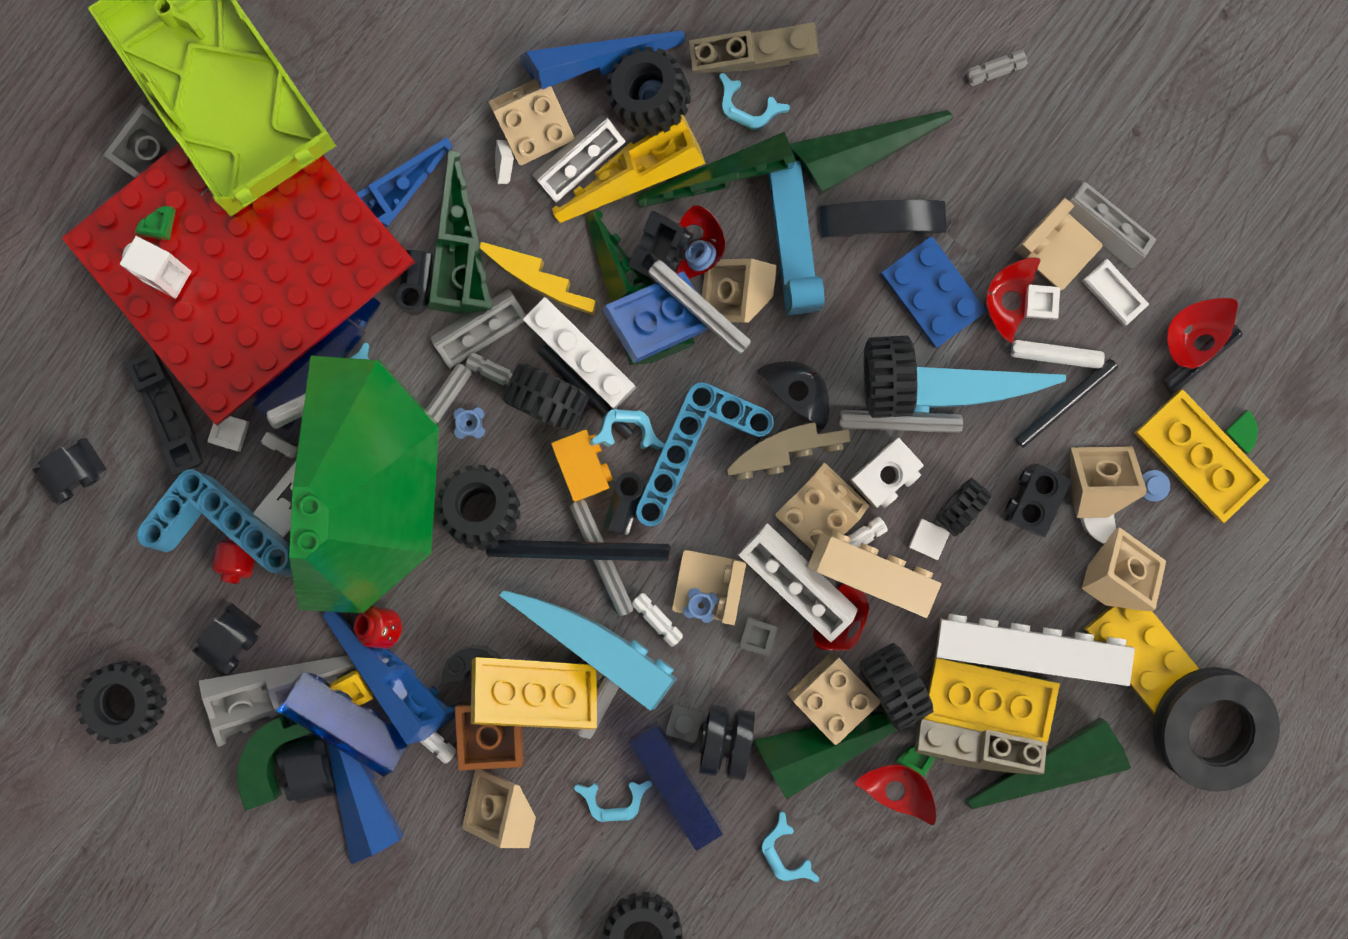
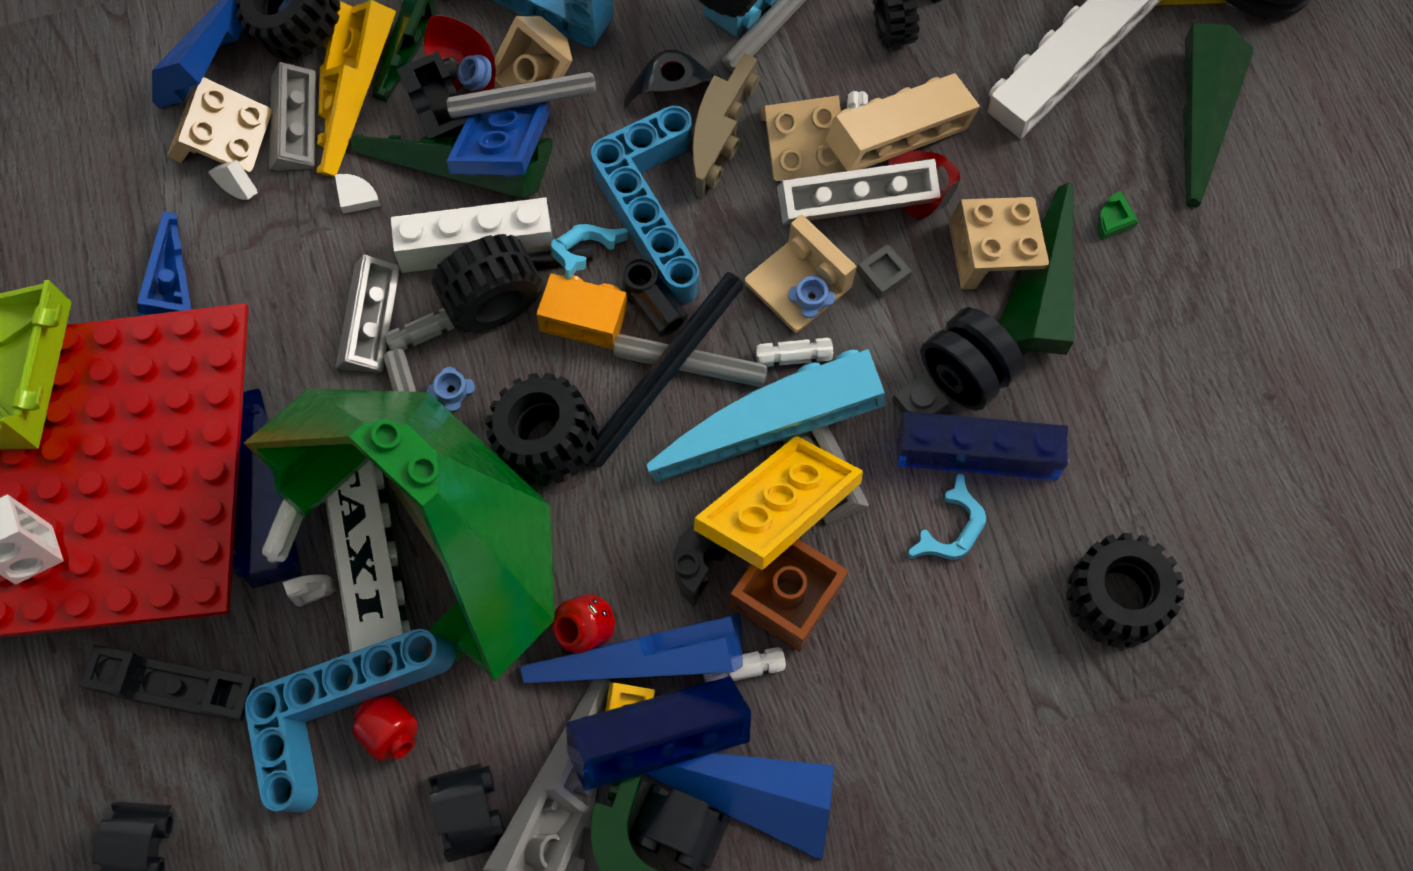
camera: 50 degrees left, 20 degrees down
(229, 433) = (248, 633): white plate -> none
(415, 280) = (270, 336): black piece -> none
(457, 269) = (293, 291): dark green wedge -> none
(498, 812) = (876, 643): tan slope -> none
(529, 272) = (356, 228): yellow slope -> none
(555, 247) = (355, 193): none -> white tile
(803, 871) = (1115, 412): medium azure helmet -> none
(868, 478) = (811, 39): white brick -> none
(896, 686) = (1030, 163): black tyre -> none
(918, 797) = (1150, 234): red piece -> none
(929, 539) = (903, 69): white tile -> none
(980, 749) = (1150, 146): dark tan slope -> none
(991, 700) = (1101, 116): yellow plate -> none

